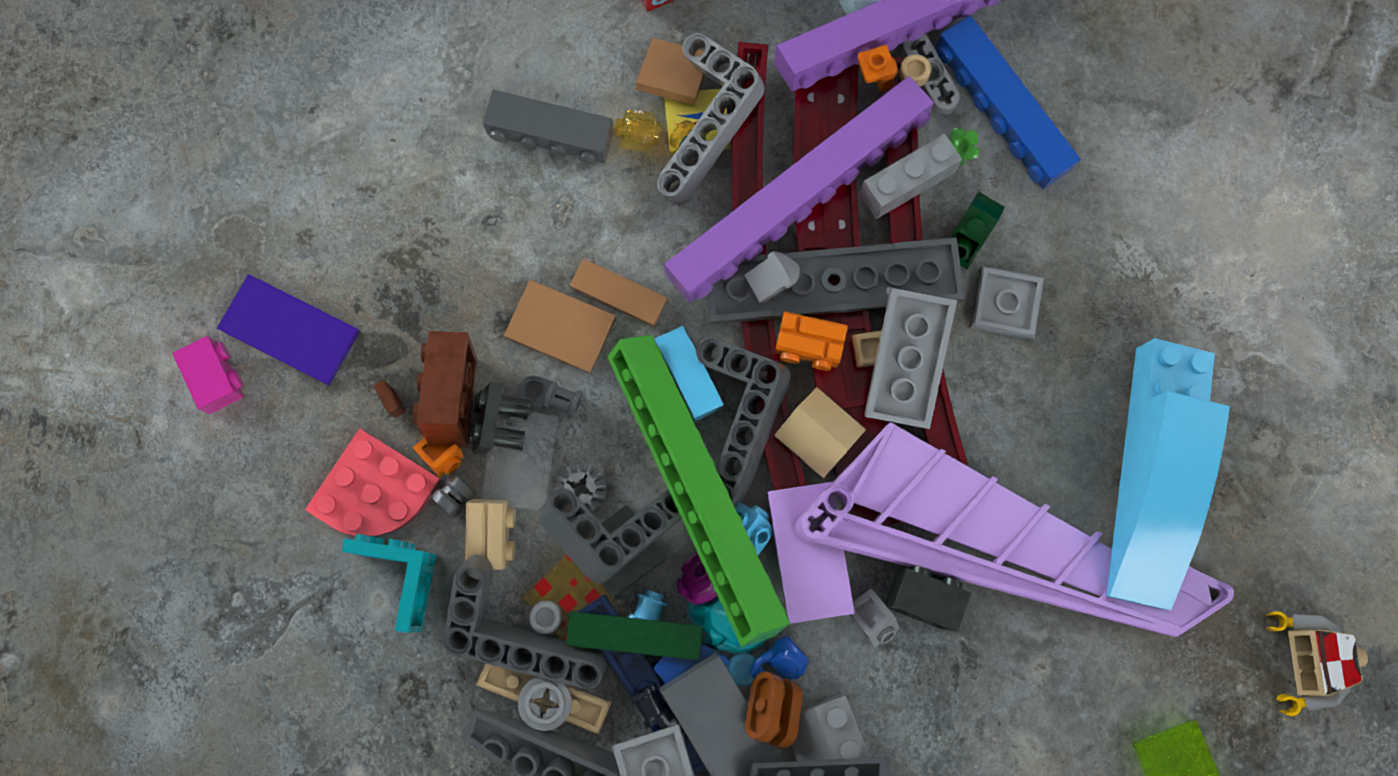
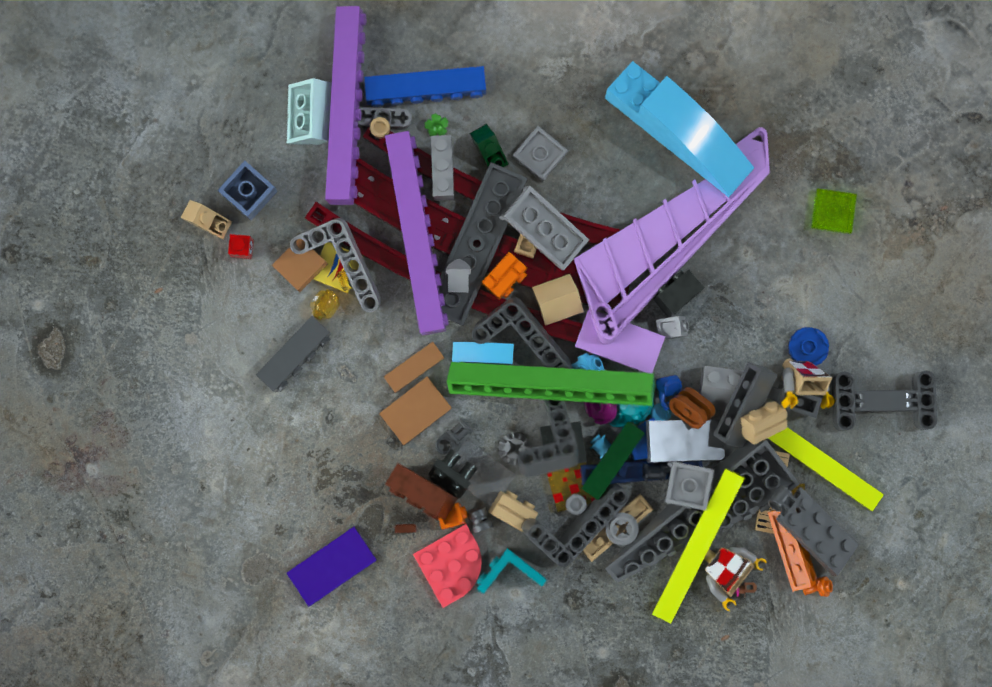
camera: 60 degrees left, 5 degrees up
(209, 374) = (334, 623): dark pink brick -> none
(878, 66) = (369, 149): orange bracket -> none
(1322, 659) = (822, 104): torso -> none

